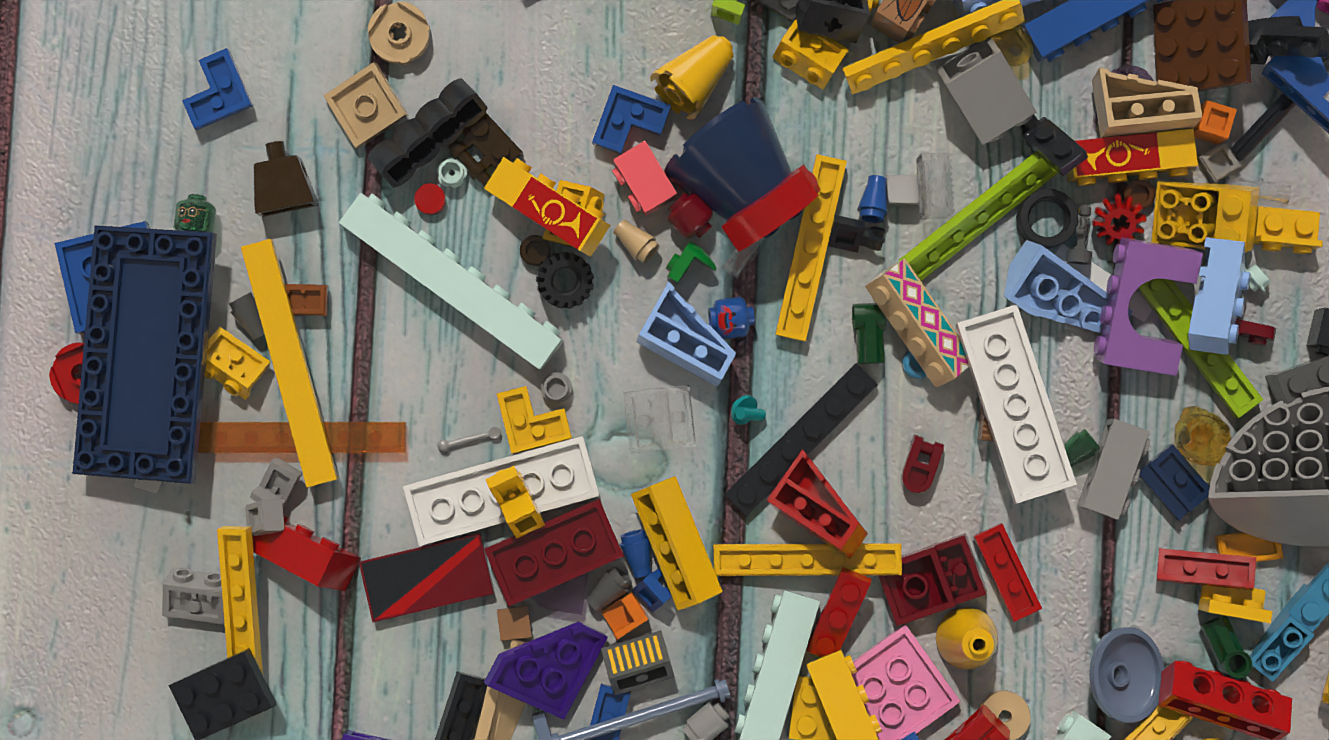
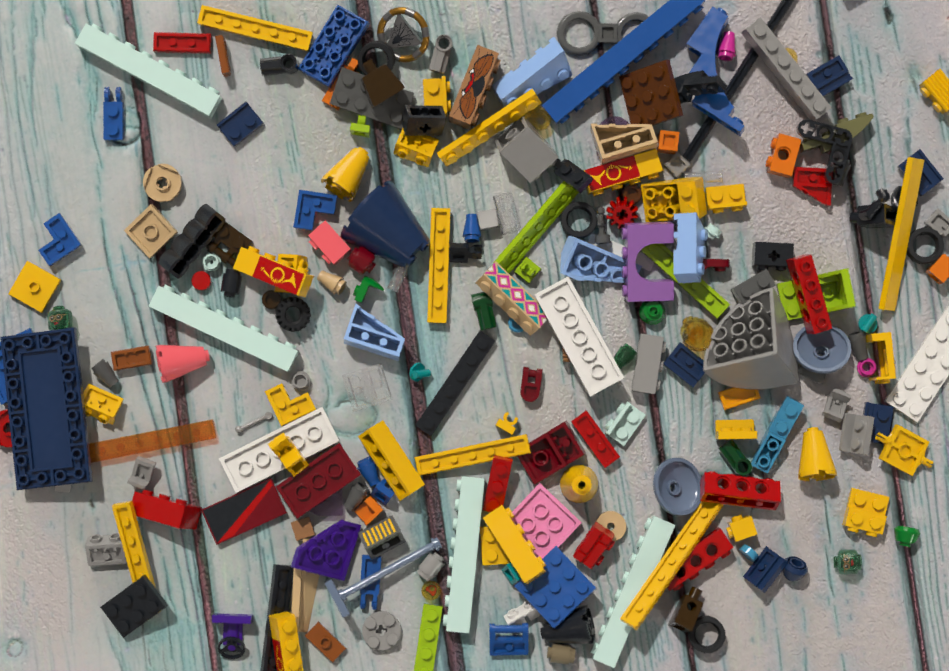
camera: 15 degrees left, 0 degrees up
(165, 157) = (34, 286): none -> yellow plate
(265, 516) = (139, 493): light grey slope -> none
(281, 183) = (109, 288): dark brown torso -> none
(289, 362) = (135, 397): yellow tile -> none
(371, 318) = (179, 360): none -> coral cone
(476, 211) = (231, 283): none -> black brick
(731, 317) = (398, 317): blue head -> none
(772, 209) = (409, 247): red arch -> none
(815, 506) = (469, 420): red wedge -> none
(870, 523) = (505, 425): none -> yellow tile
(949, 282) = (527, 270): none -> lime tile
(1058, 555) = (624, 423): none -> light aqua bracket
(1131, 394) = (649, 316): none -> green cone
(1206, 569) = (714, 413): red plate -> none

